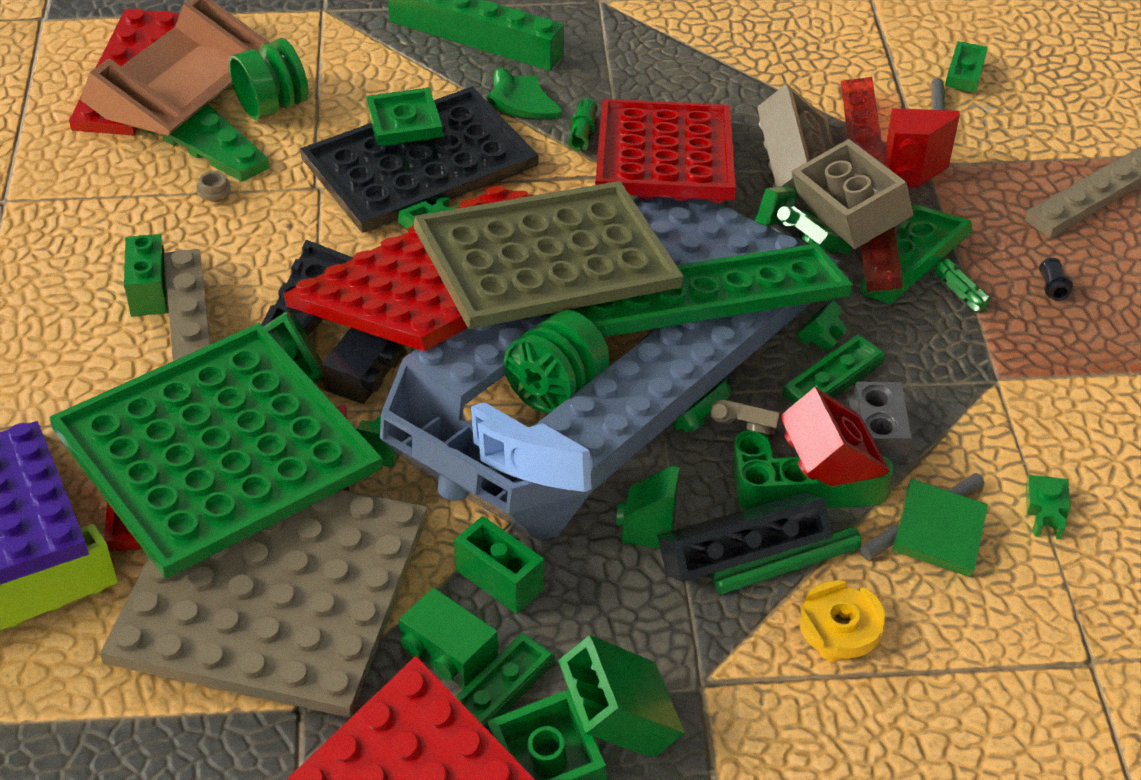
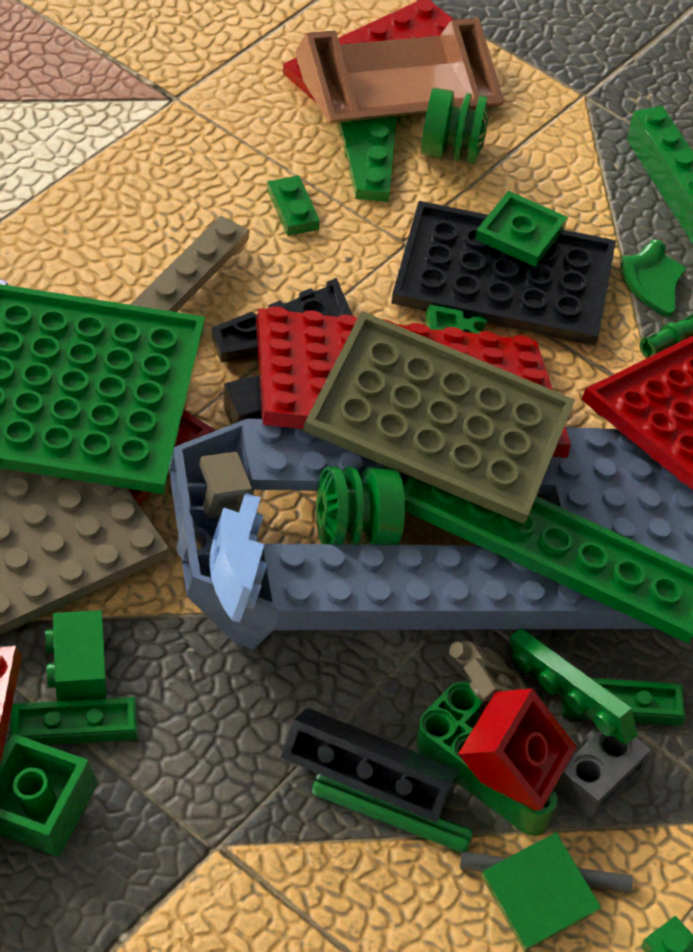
camera: 40 degrees right, 5 degrees up
(145, 275) = (190, 219): green brick -> none
(202, 215) = (293, 205): none -> green plate
(213, 186) = (325, 187): dark tan plate -> none
(292, 338) = (223, 357): green slope -> none
(447, 409) = (225, 483): none -> dark tan panel
(499, 564) = (169, 633): green brick -> none
(620, 697) = (123, 799): green brick -> none
(649, 508) = (327, 685): green slope -> none
(693, 417) = (491, 638): green plate -> none
(795, 380) = (576, 688): none -> green plate
(823, 325) = (662, 650): green tile -> none
(837, 639) = (376, 915): yellow plate -> none

